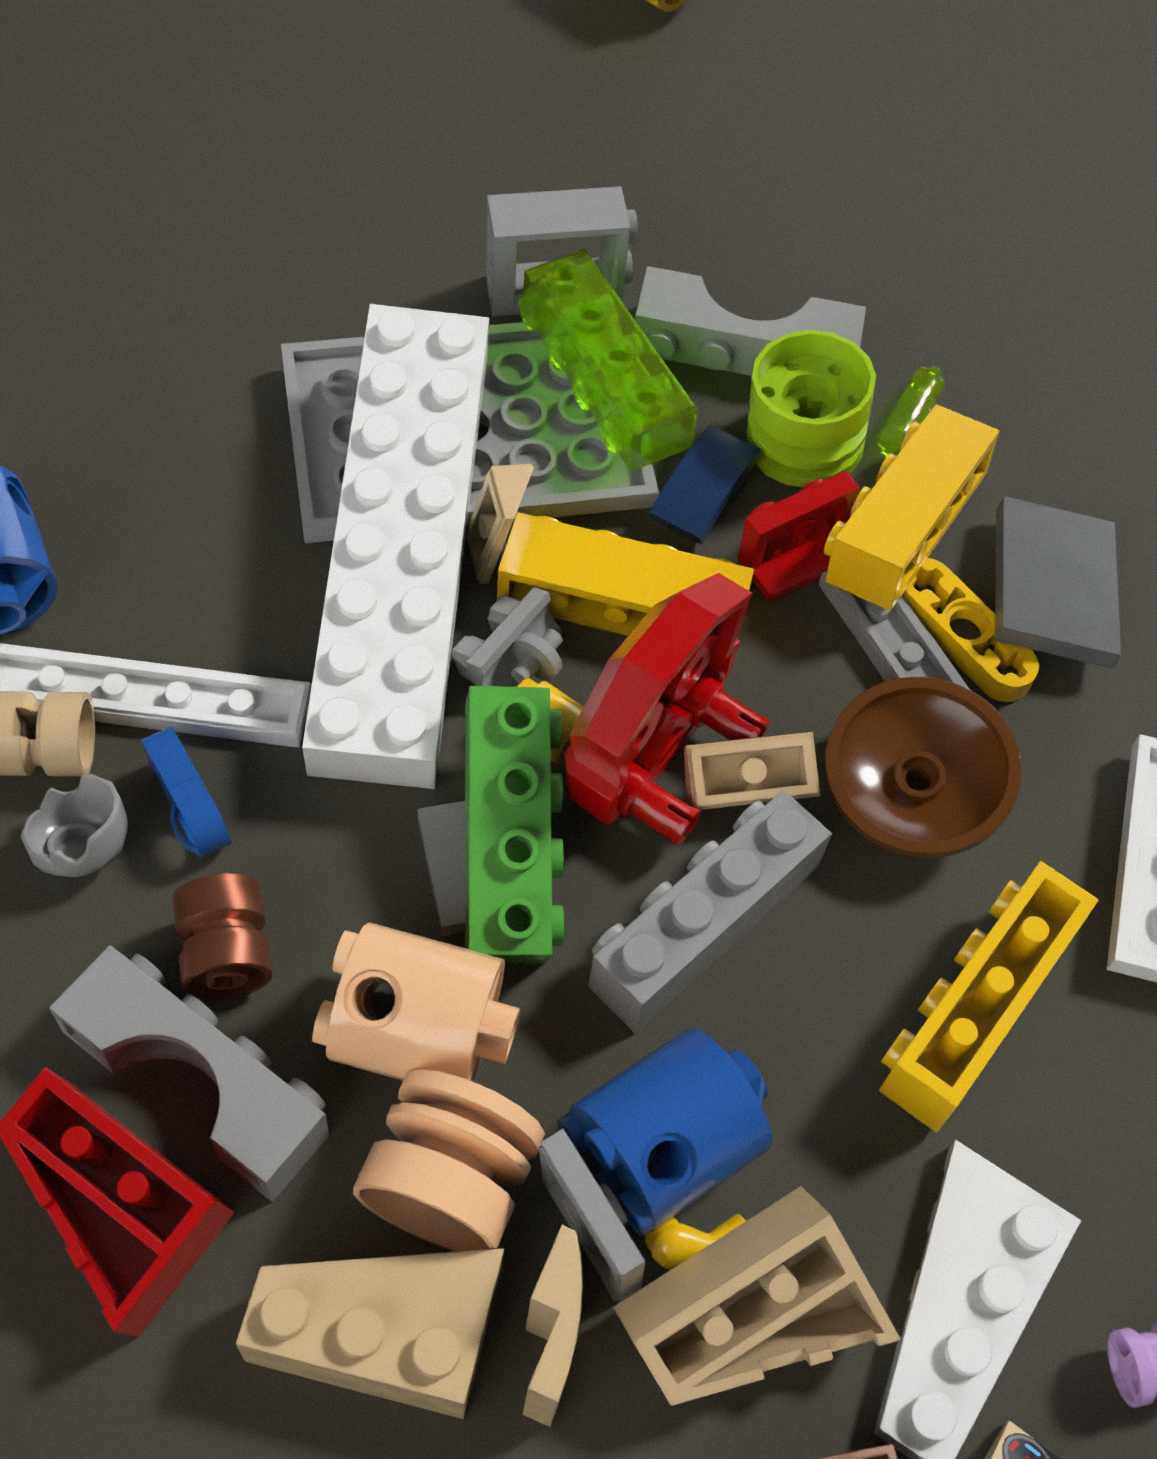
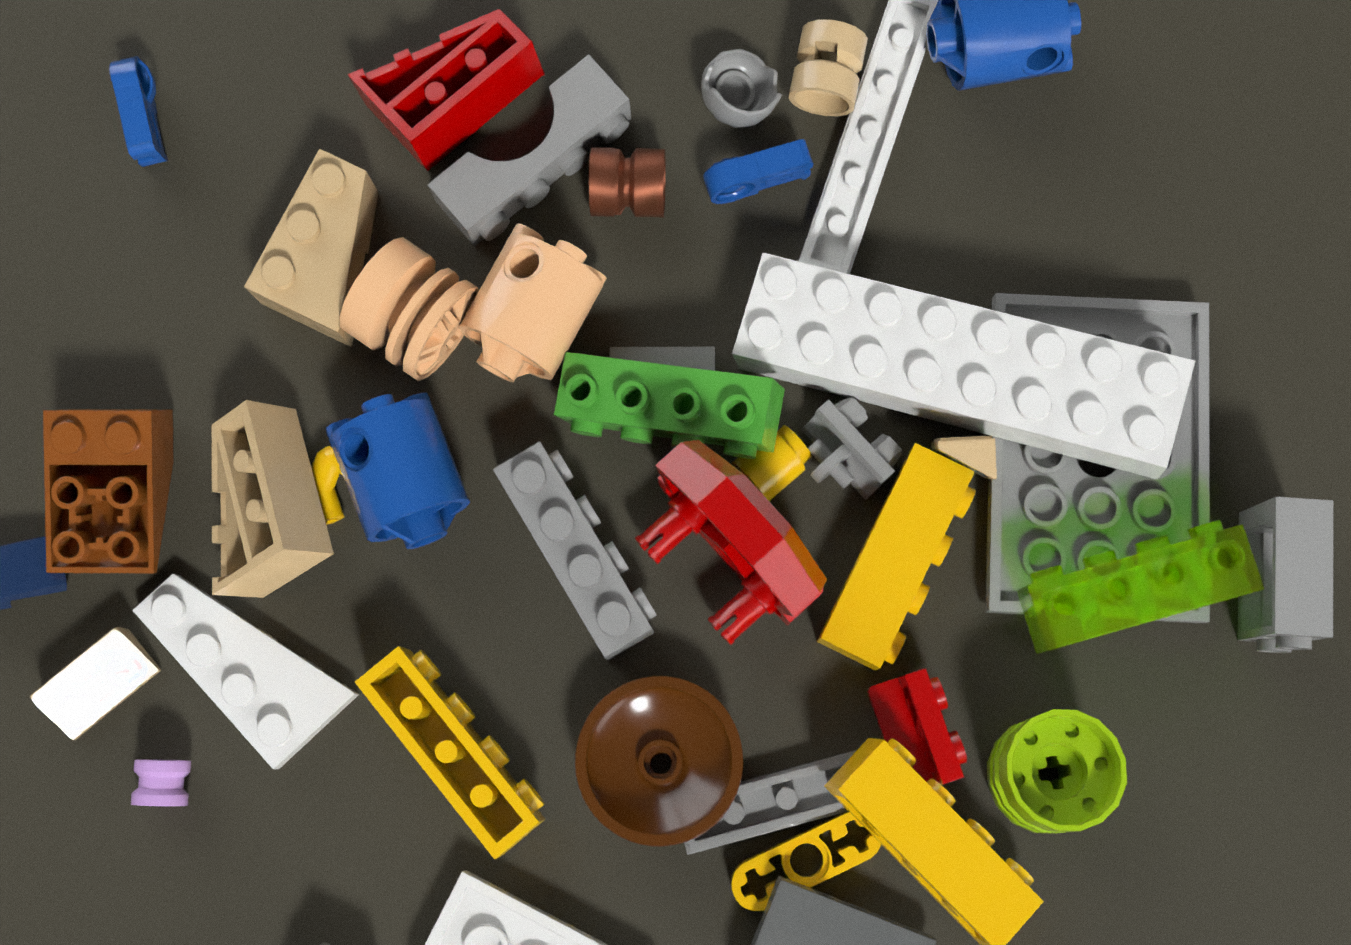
camera: 115 degrees right, 20 degrees up
(554, 1317) = (282, 359): tan slope -> none
(593, 1215) = (341, 395): light grey plate -> none
(696, 331) = (1195, 680): light grey arch -> none
(704, 483) = (998, 659): dark blue slope -> none
(750, 770) = (685, 615): tan slope -> none
(912, 406) = (1063, 890): clear neon green axle -> none

